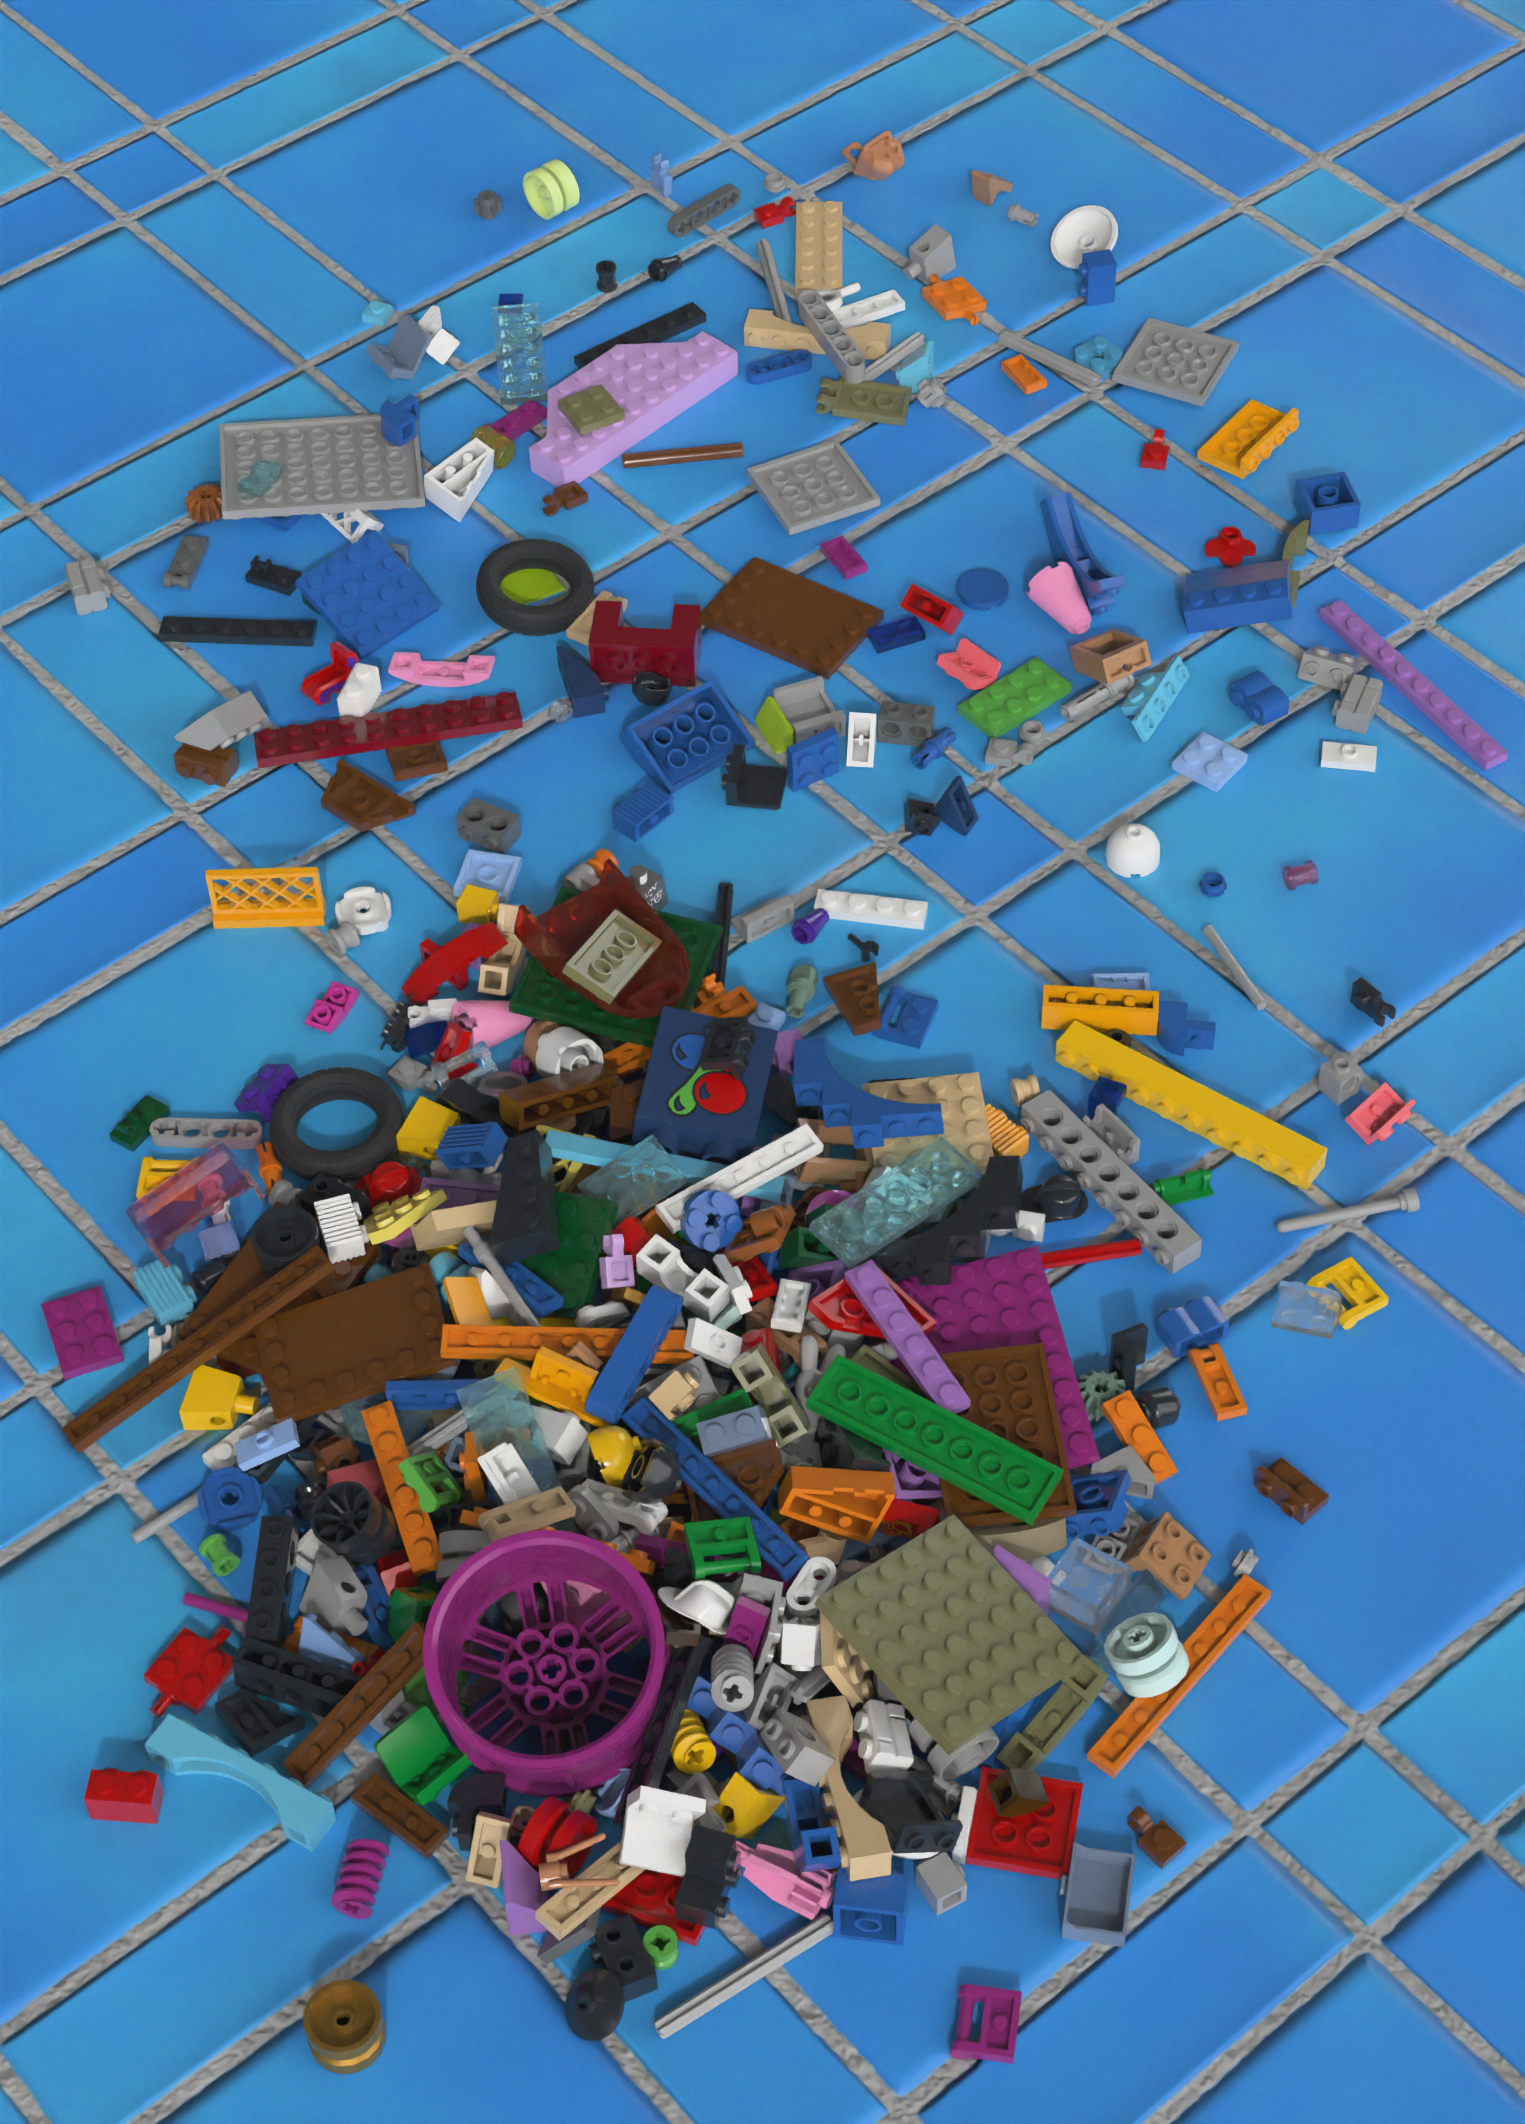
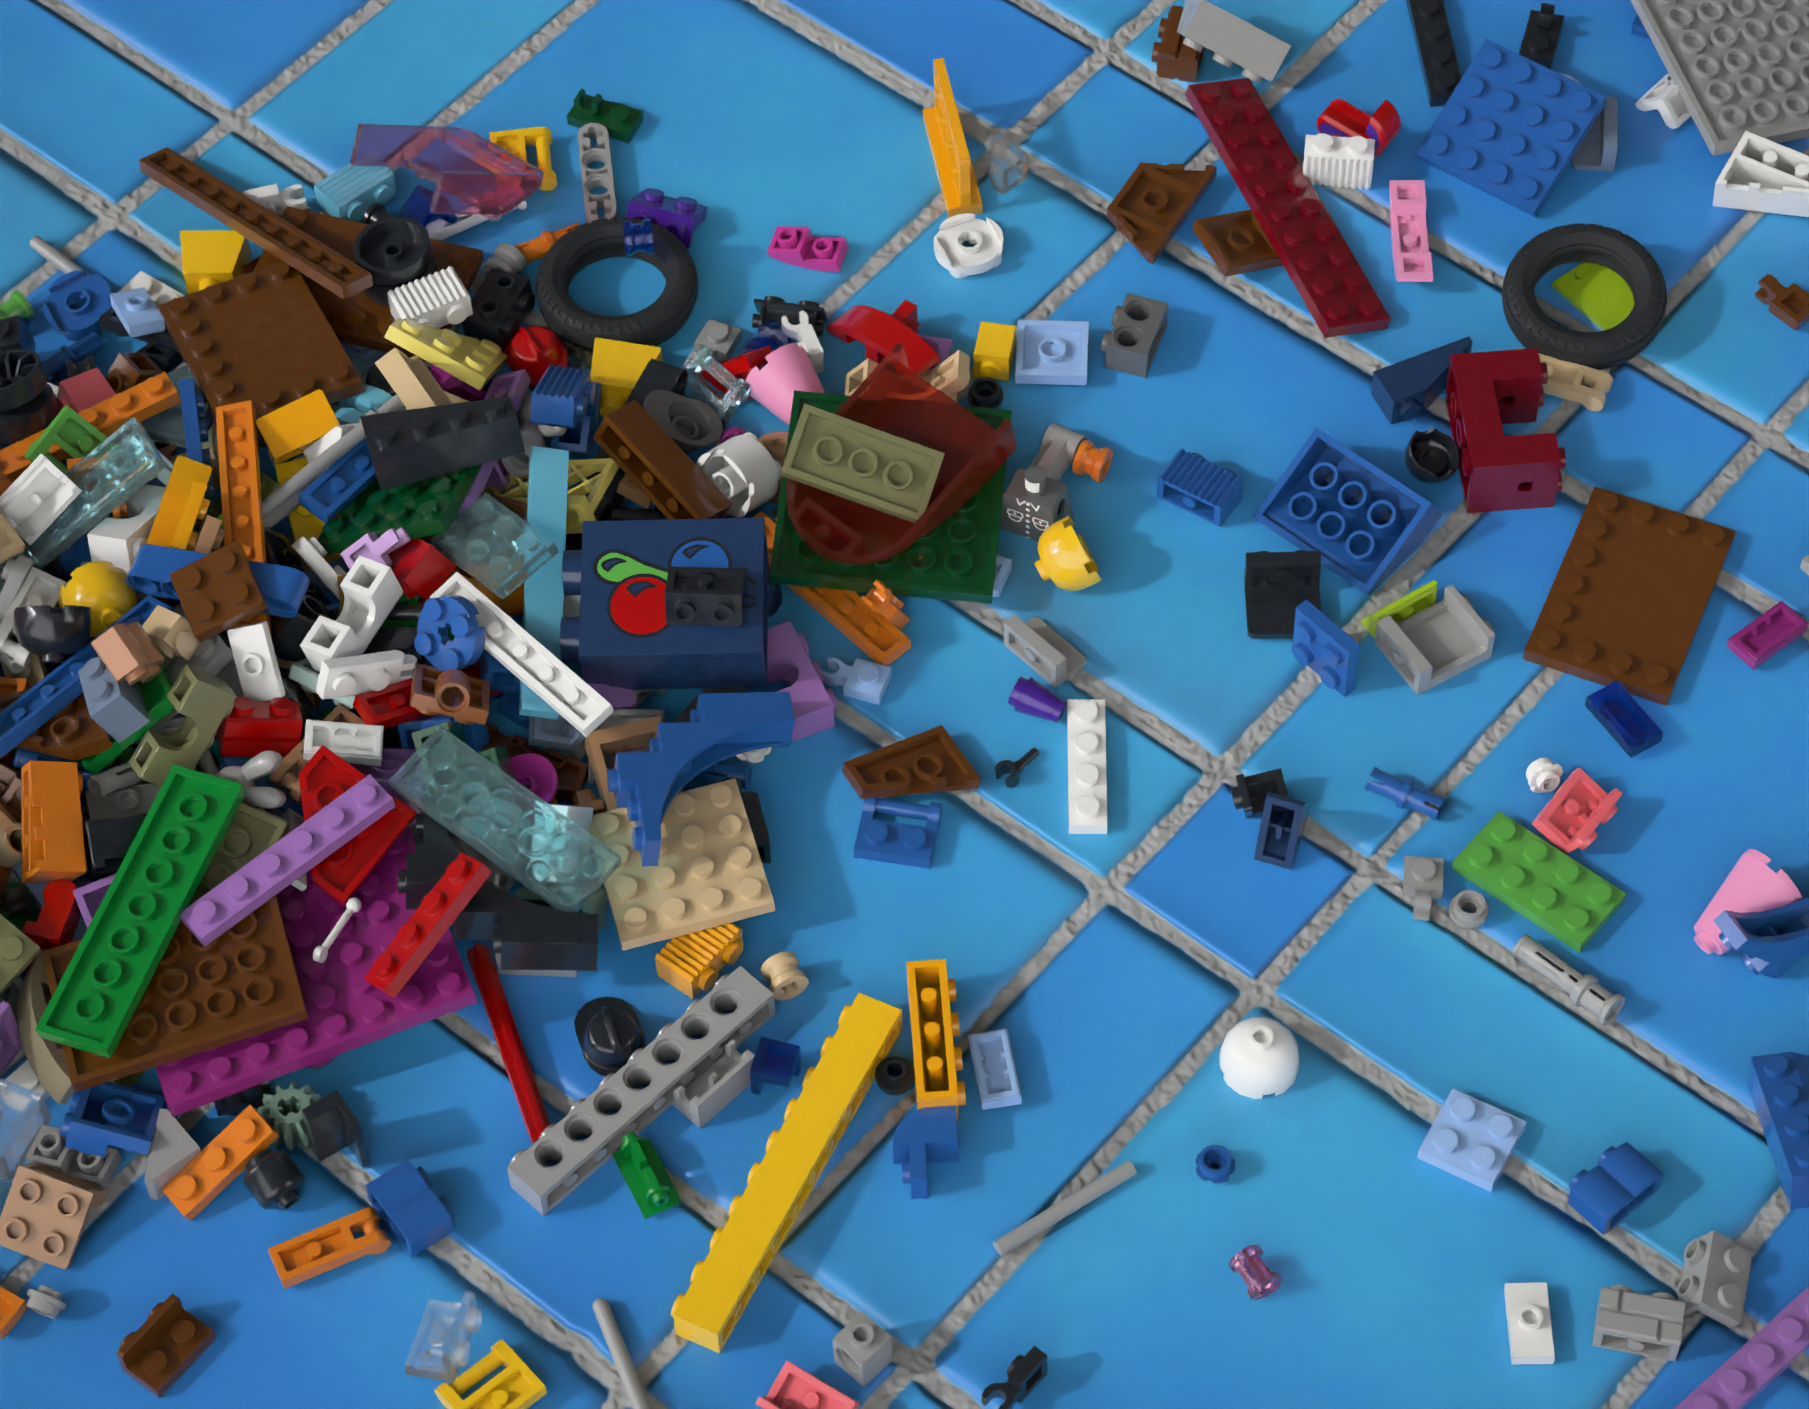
camera: 80 degrees right, 5 degrees up
(82, 1332) = (301, 137): magenta plate -> none
(313, 1086) = (638, 237): none -> clear blue wheel
(342, 938) = (915, 232): light grey wheel -> none
(560, 710) = (1364, 368): clear plate -> none
(660, 1340) = (218, 591): none -> reddish brown plate
(691, 886) = (1066, 557): none -> yellow cylinder
(709, 1402) = (129, 653): none -> nougat brick
(722, 918) = (1002, 610): black axle -> none
(801, 989) = (922, 706): sand green arm -> none
(861, 739) = (1389, 707): white slope -> none
(905, 723) = (1437, 750): dark grey brick -> none
(931, 609) = (1674, 747): red brick -> none
(935, 678) = (1543, 775): none -> white plate
(979, 1340) = (320, 953): none -> white hinge
(982, 589) = (1757, 813): blue tile -> none
(986, 1253) = (427, 925): none -> red plate
(1030, 1227) = (553, 1003): white plate -> none
(1107, 653) = (1629, 1000): medium nougat window -> none
(1154, 696) = (1580, 1052): medium azure bracket -> none

